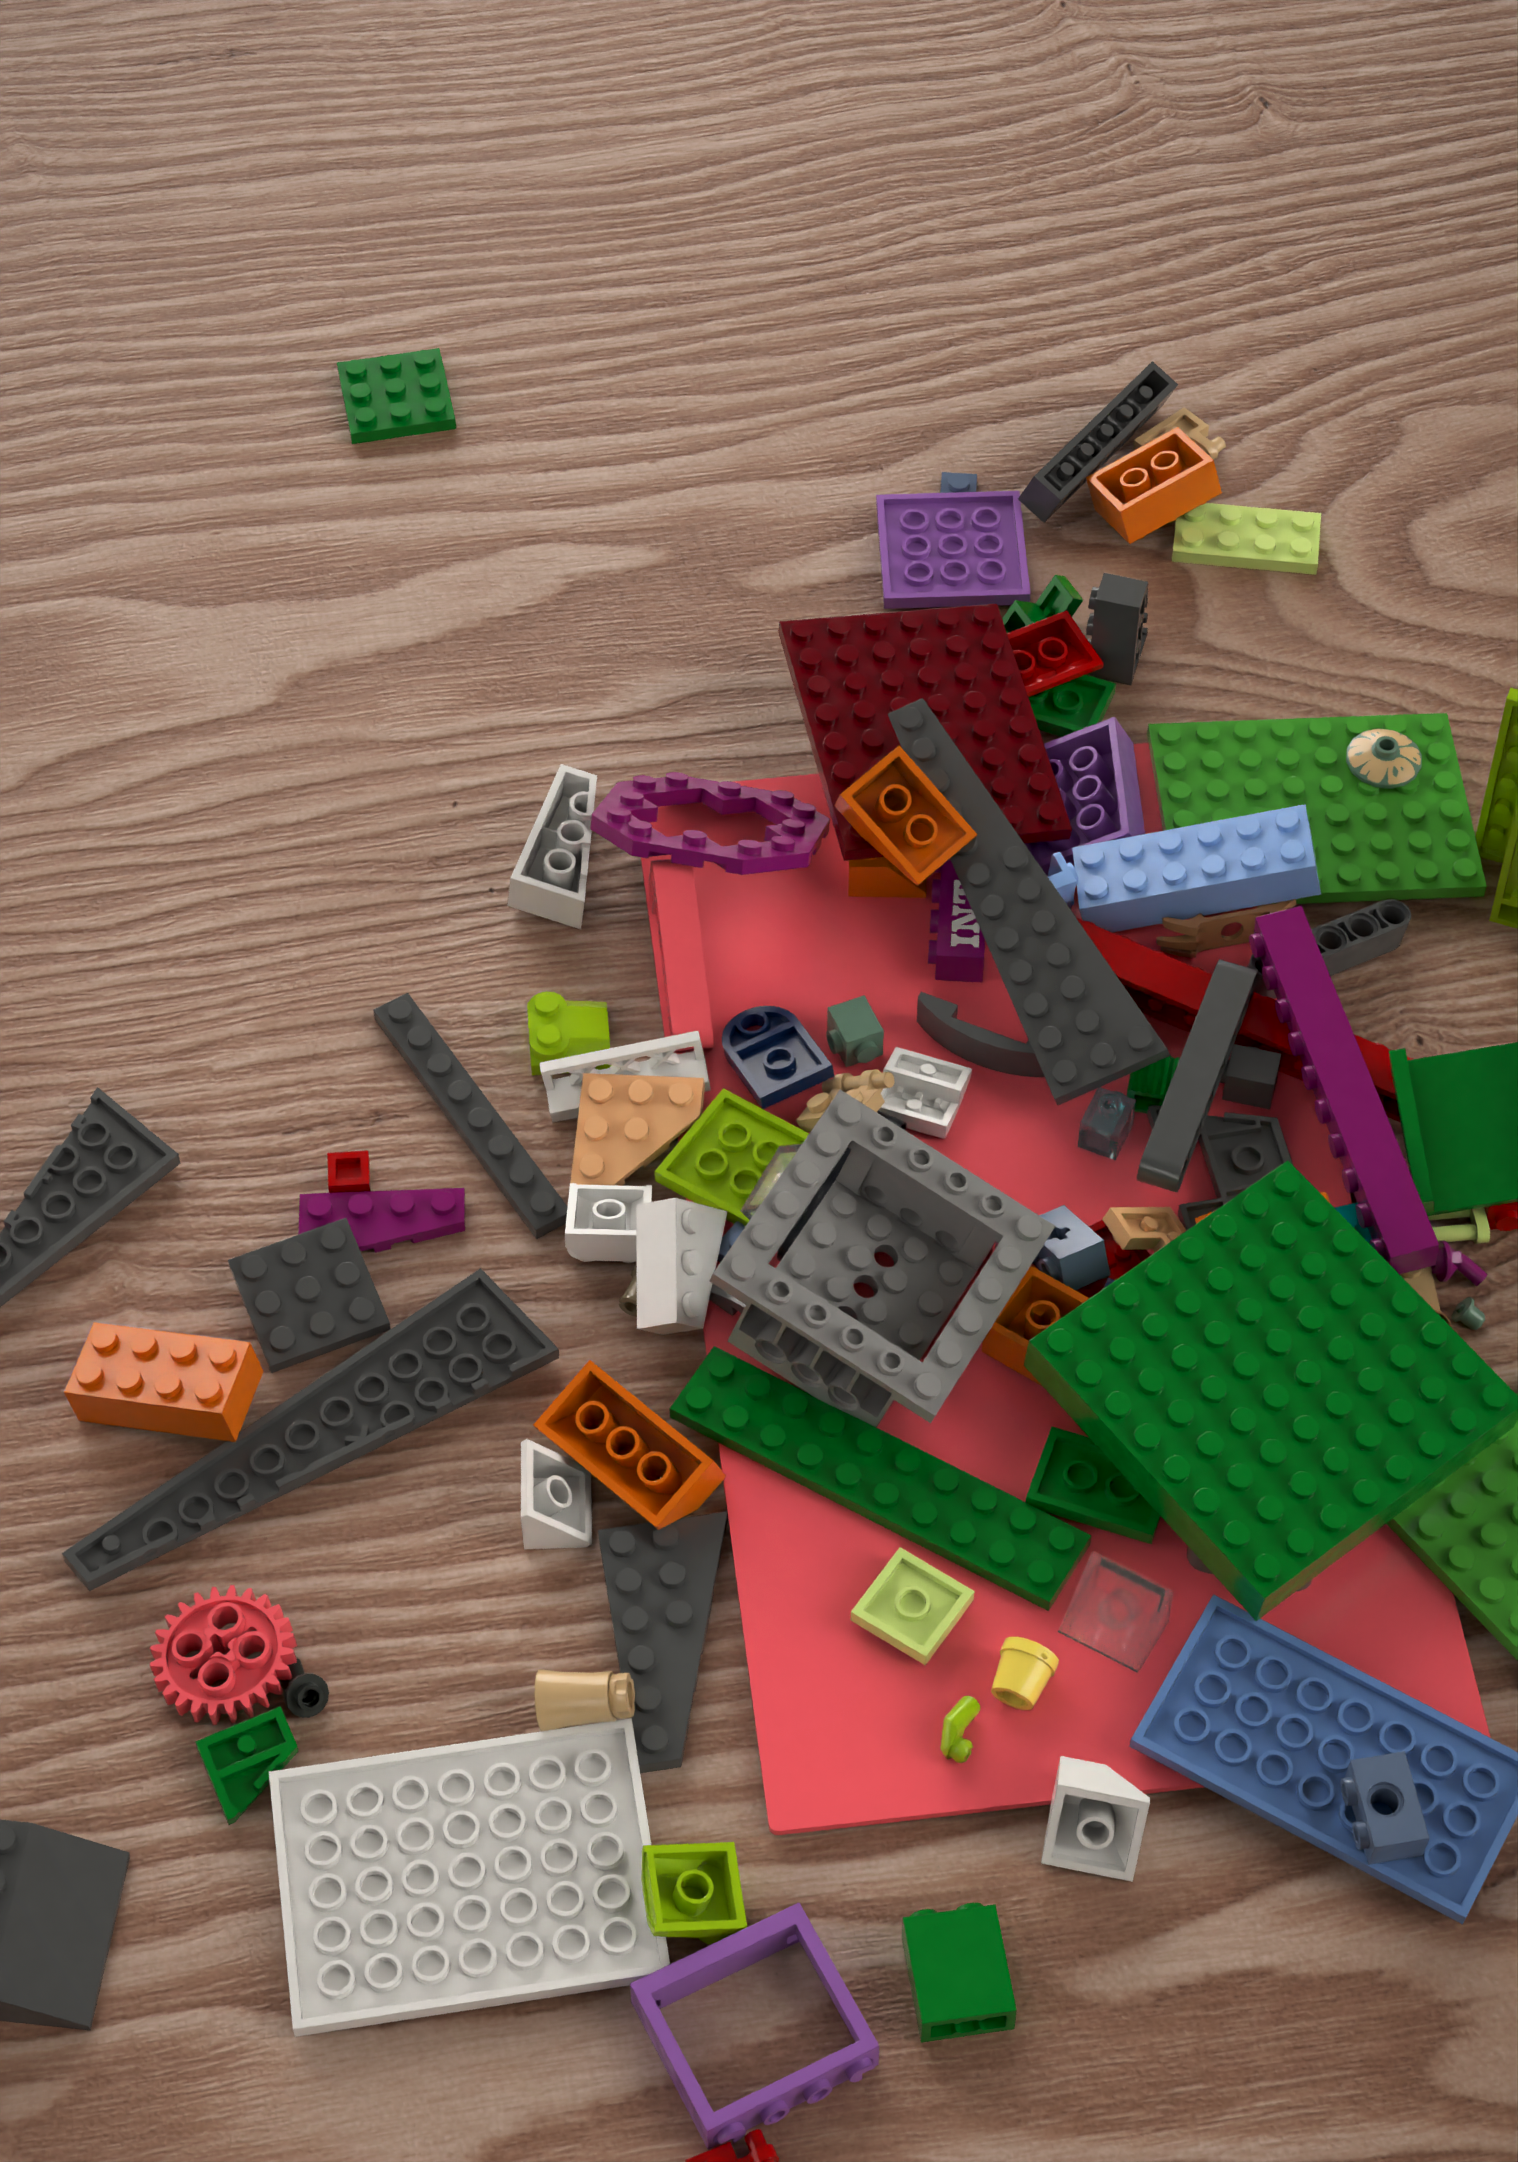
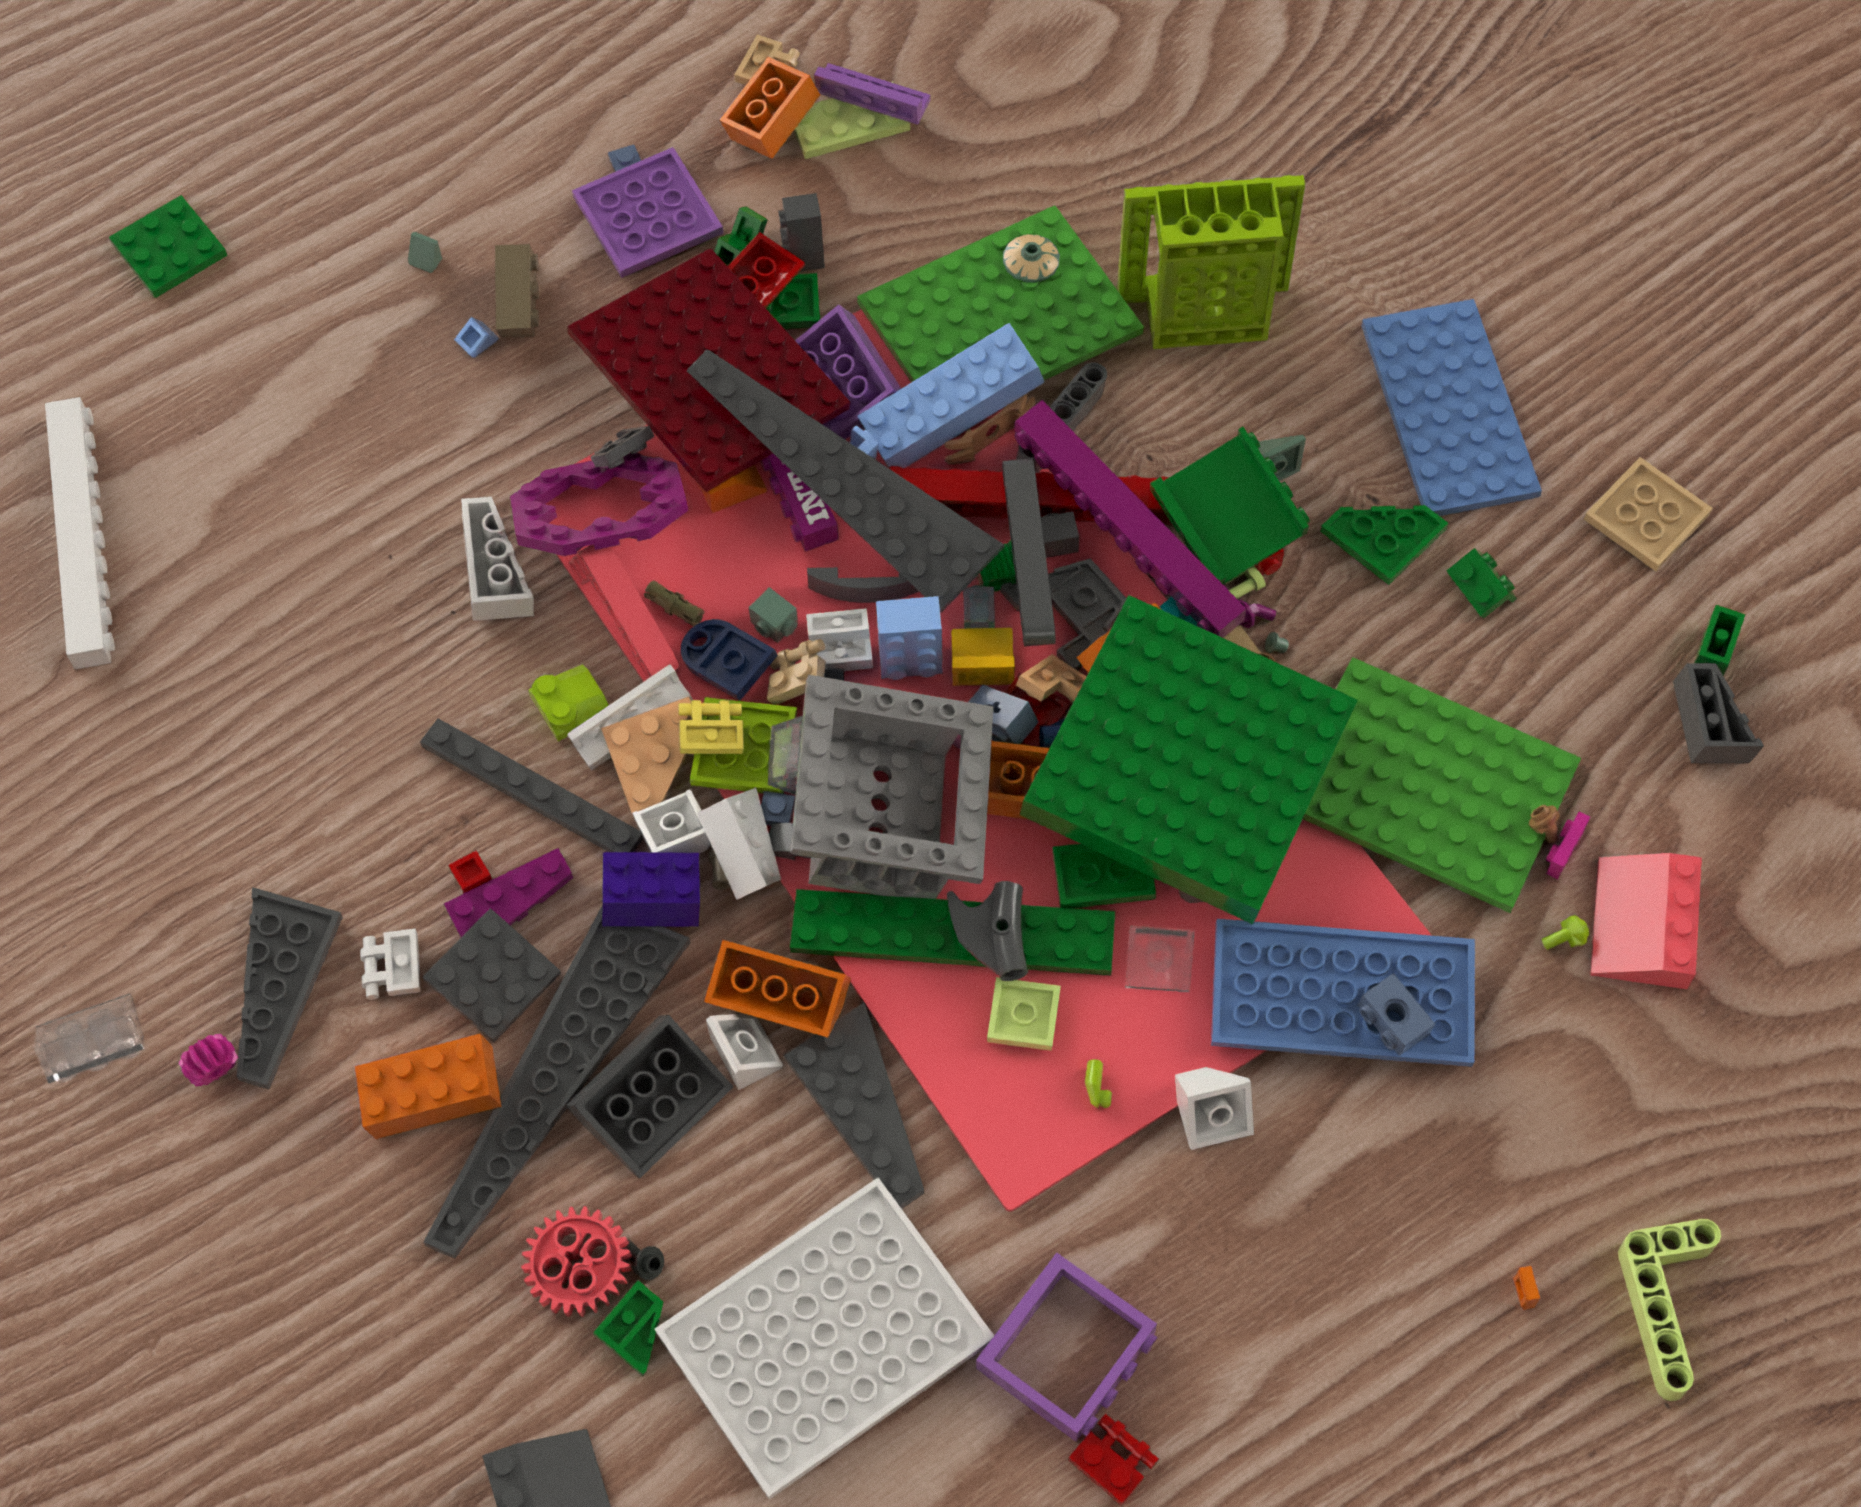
camera: 25 degrees left, 10 degrees up
(126, 648) = (78, 533): none -> white brick
(214, 1240) = (401, 964): none -> white plate
(414, 1506) = (650, 1095): none -> dark grey slope
(540, 1273) = (650, 889): none -> dark purple brick
(582, 1698) = (840, 1179): tan plant -> none
(672, 500) = (424, 252): none -> sand green slope
(682, 610) = (475, 337): none -> light blue slope
(692, 1890) = (983, 1277): lime slope -> none
(703, 1129) = (710, 736): none -> light yellow plate
(746, 973) = (674, 603): none -> olive pin
(752, 573) = (516, 290): none -> dark tan wedge
(791, 777) = (628, 441): none -> dark grey wing
(905, 816) = (741, 446): orange slope -> none
(922, 1487) = (993, 930): none -> dark grey pin
(958, 1972) = (1177, 1248): green brick -> none
(998, 1112) = (909, 637): none -> light blue brick
(1023, 1672) = (1120, 1028): light yellow piece -> none
(1082, 1176) = (982, 656): none -> yellow bracket
(1097, 442) = (712, 87): dark grey brick -> none
(1285, 513) = (871, 93): none -> medium lavender fence

